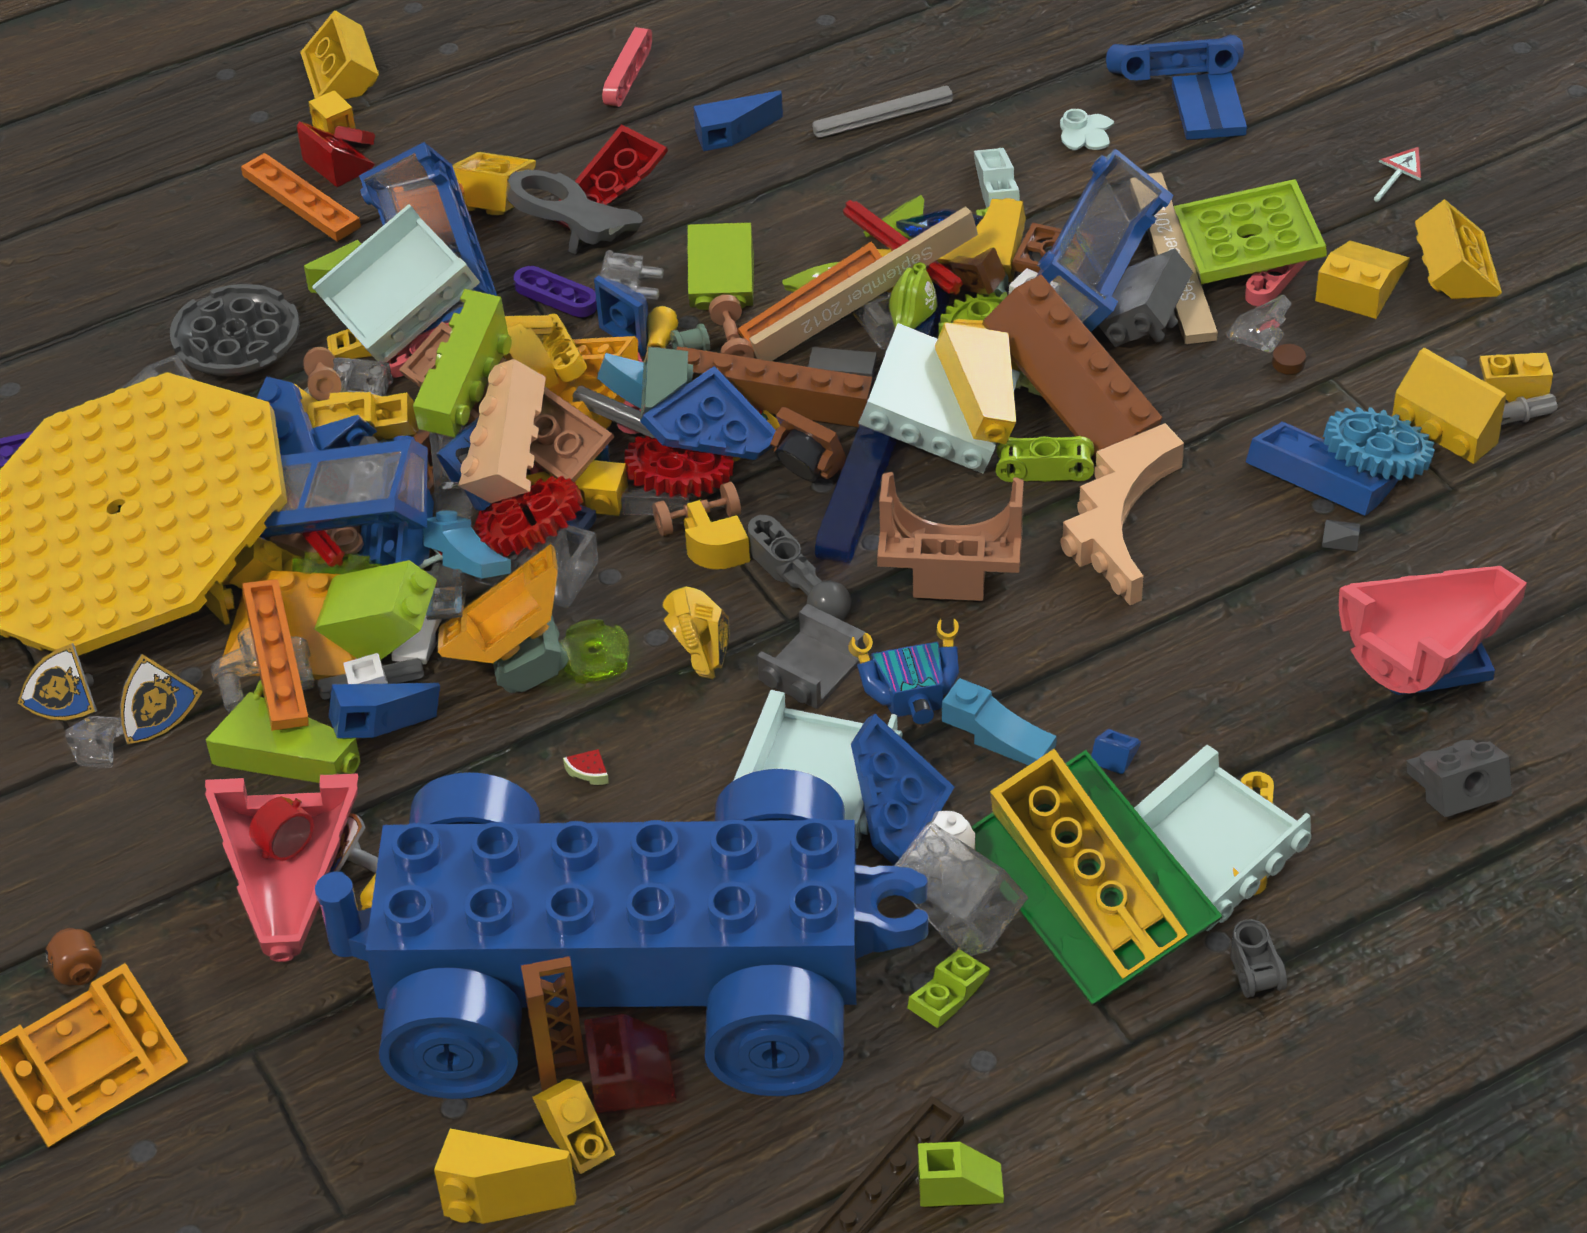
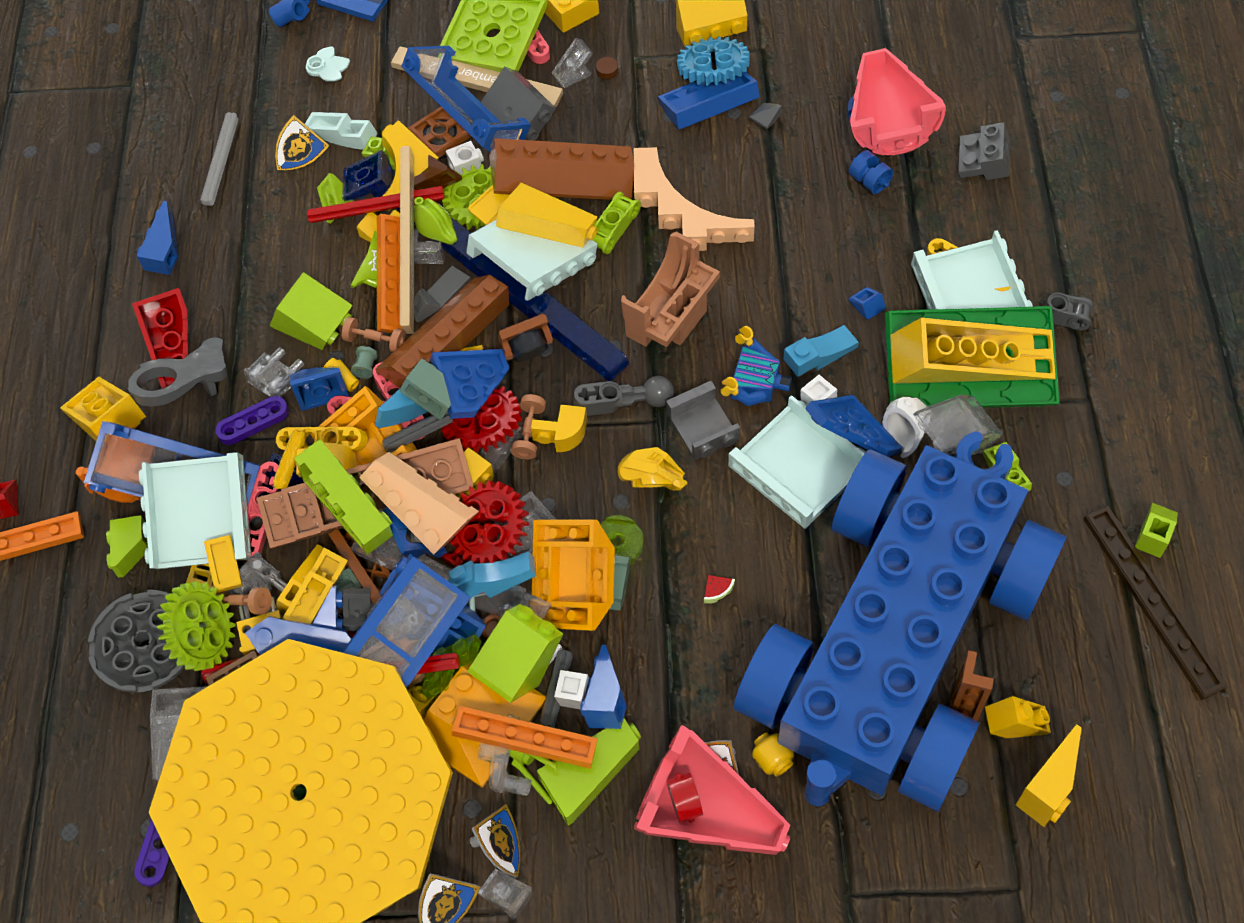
camera: 60 degrees left, 15 degrees up
(246, 326) = (196, 626): none -> lime gear
(346, 343) = (223, 563): none -> yellow tile
(627, 67) = (50, 278): coral beam -> none
(628, 1063) = (995, 663): clear red slope -> none
(801, 354) = (424, 305): none -> dark grey slope
(920, 735) = (817, 390): none -> white brick
(941, 154) = (297, 145): none -> shield
(1323, 665) = (872, 173): none -> blue wheel

